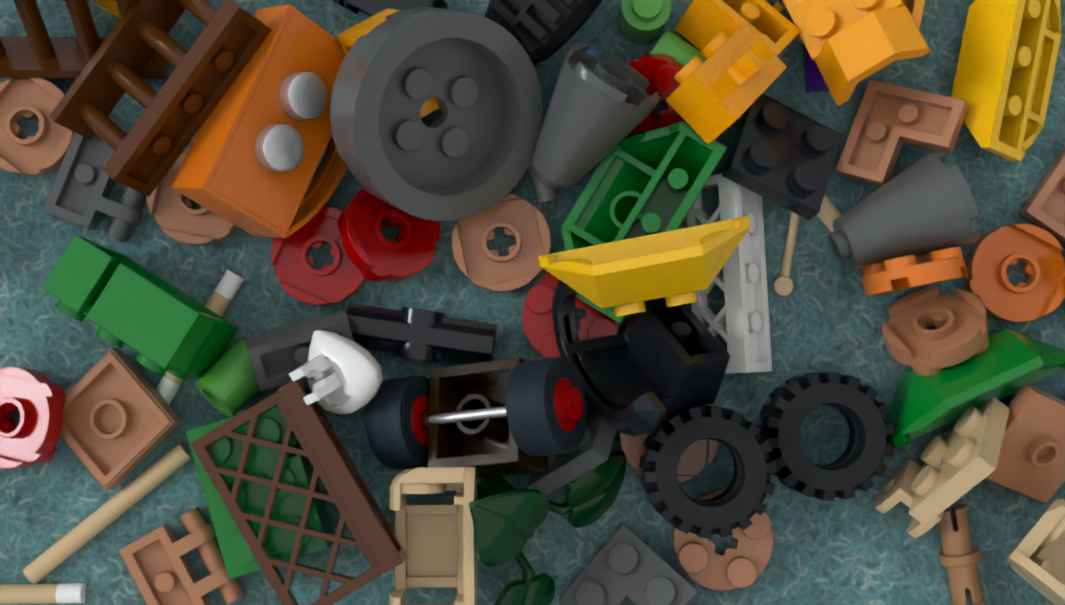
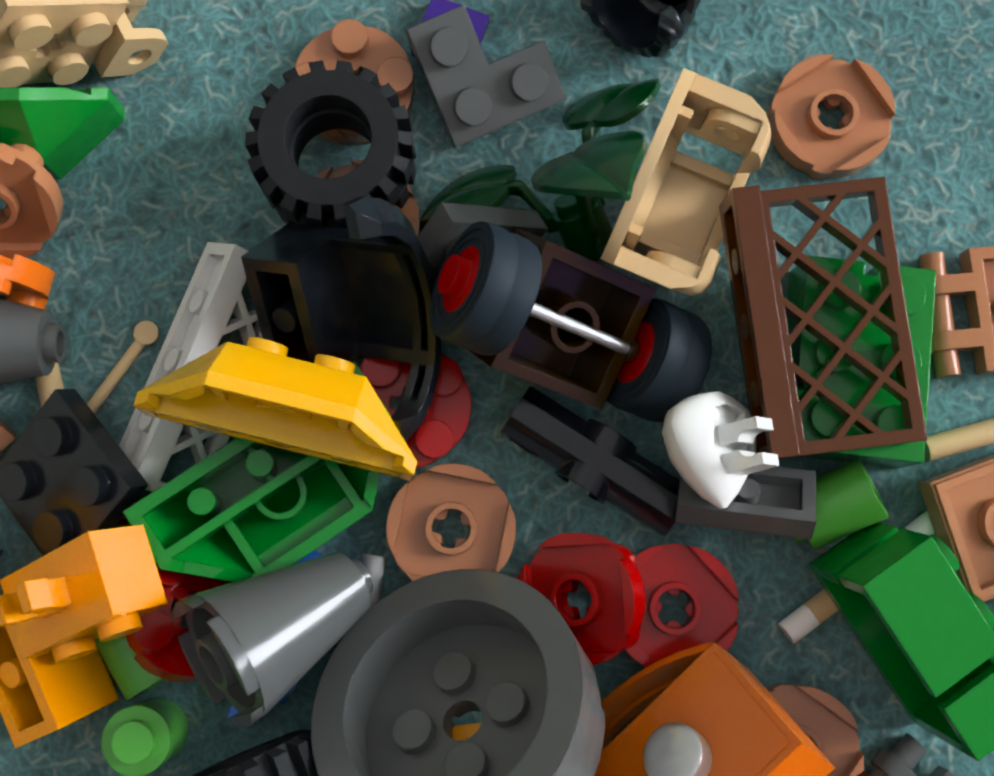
camera: 160 degrees left, 5 degrees down
(866, 439) = (145, 106): black tyre -> none

